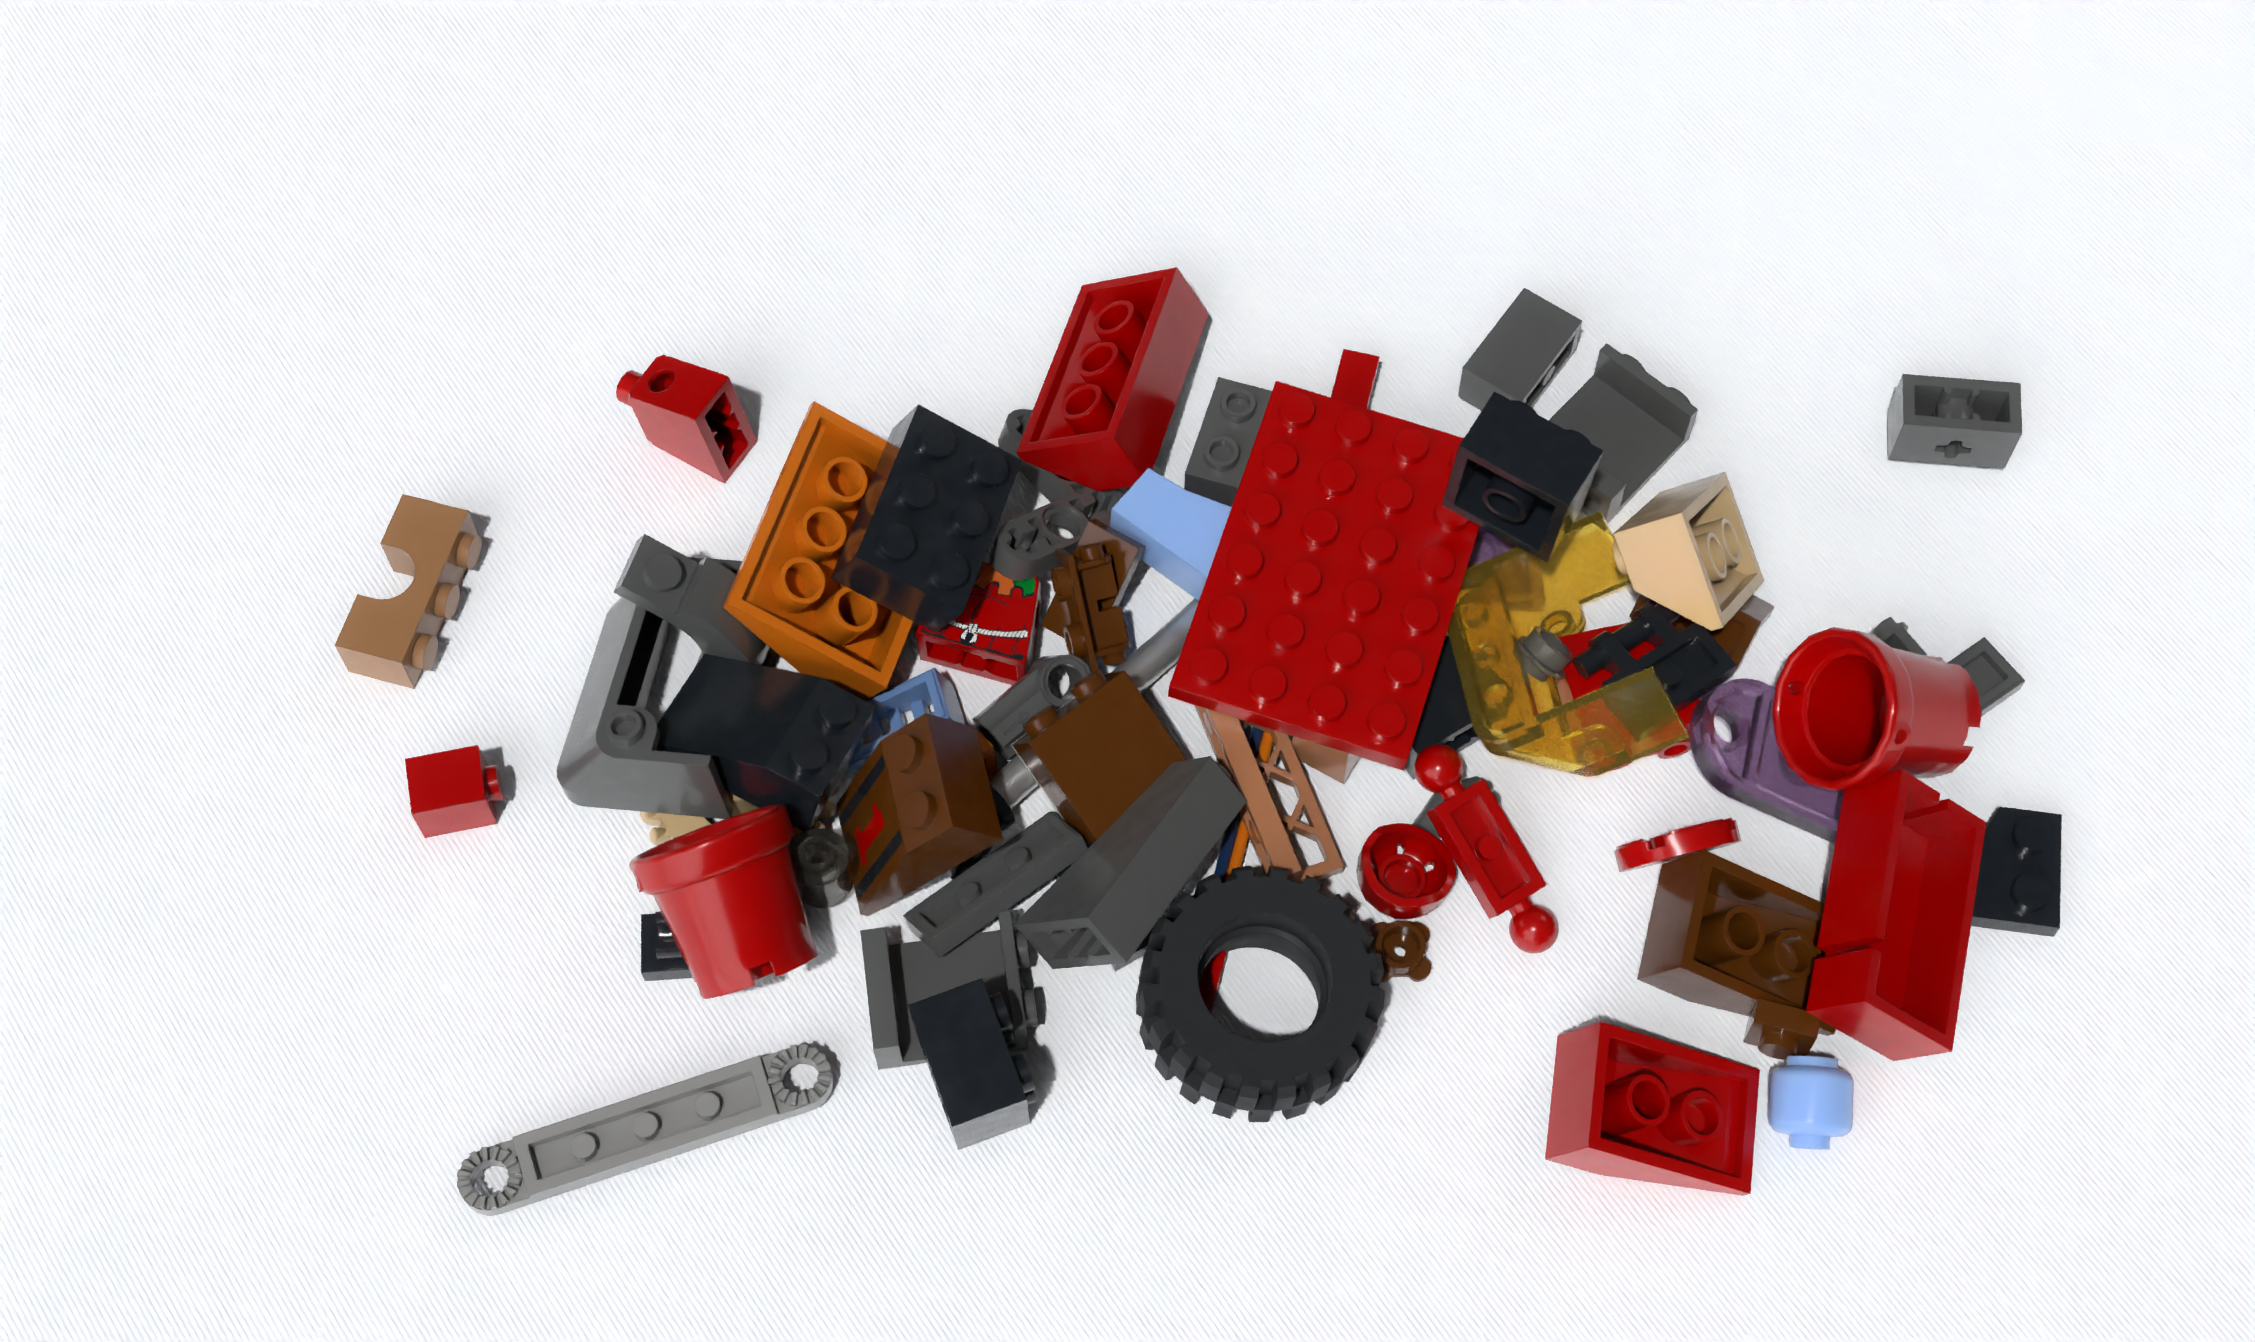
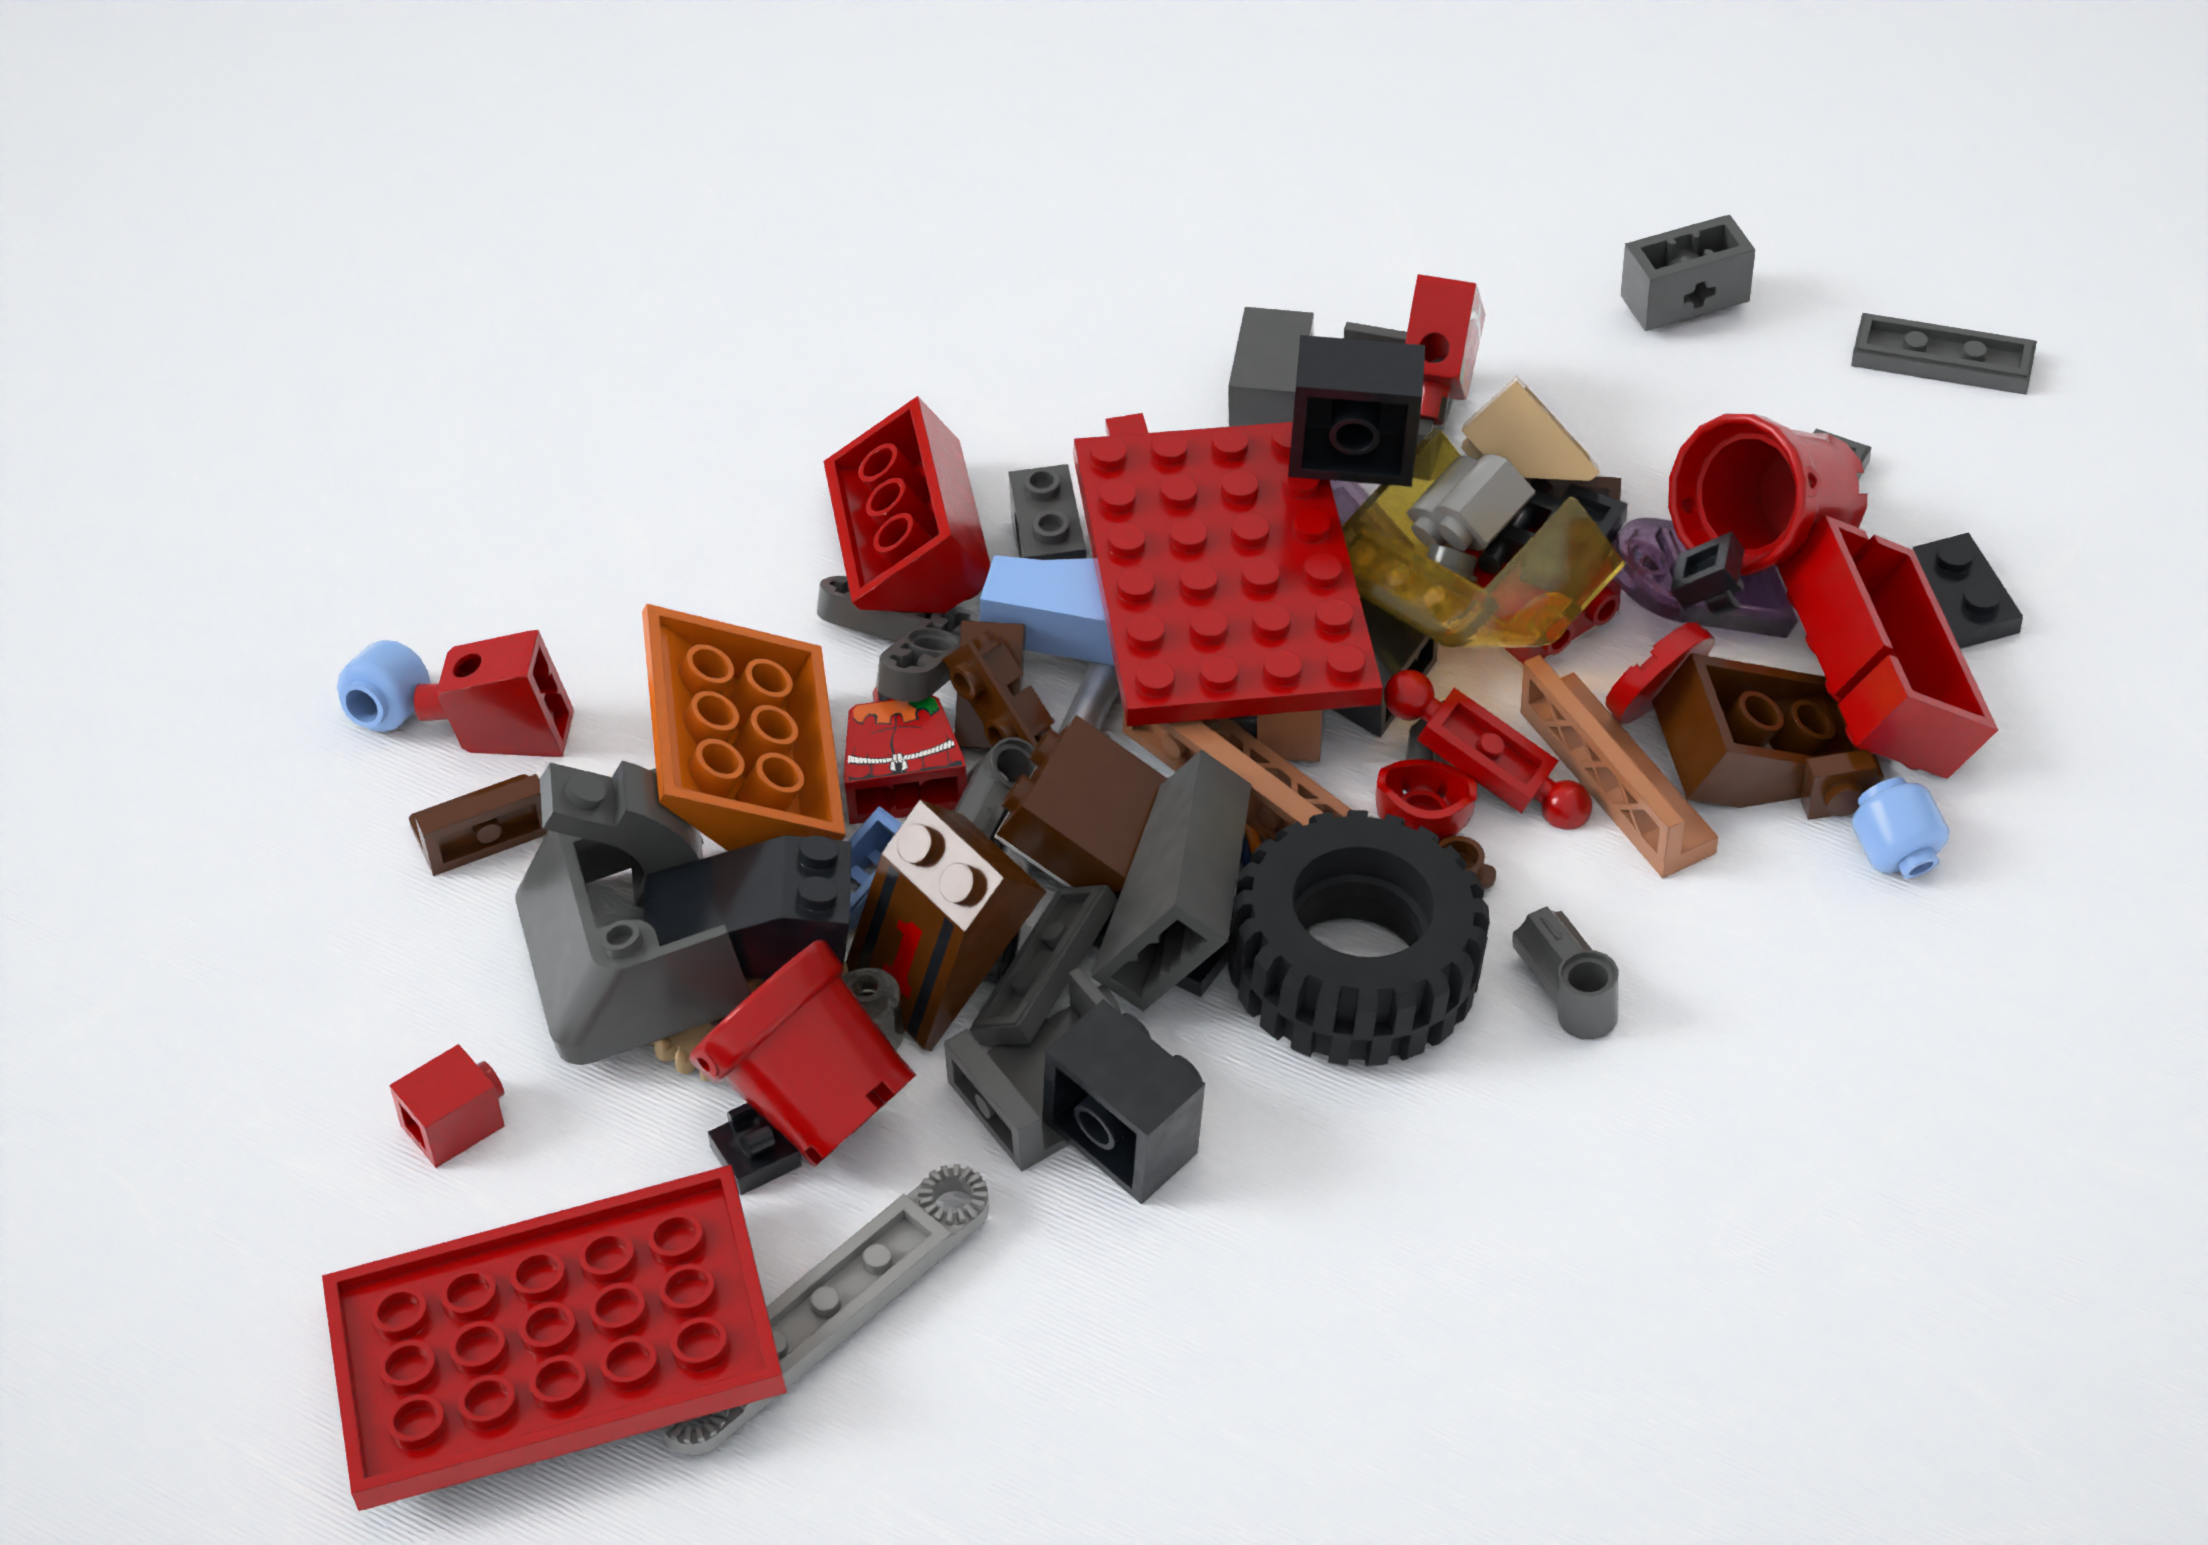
camera: 25 degrees left, 15 degrees down
(399, 634) = (303, 999): medium nougat arch -> none
(413, 1056) = (548, 1337): none -> red plate
(604, 352) = (380, 685): none -> light blue head
(615, 518) = (479, 823): none -> reddish brown panel
(927, 519) = (810, 668): black brick -> none
(1433, 1103) = (1571, 972): none -> dark grey piece
(1589, 604) = (1470, 503): none -> light grey brick
(1595, 911) = (1614, 770): none -> nougat fence
(1651, 1111) = (1763, 893): red slope -> none
(1679, 399) = (1450, 323): none -> red torso
(1771, 772) = (1710, 575): none -> black tile
(2157, 605) = (1944, 353): none -> dark grey tile

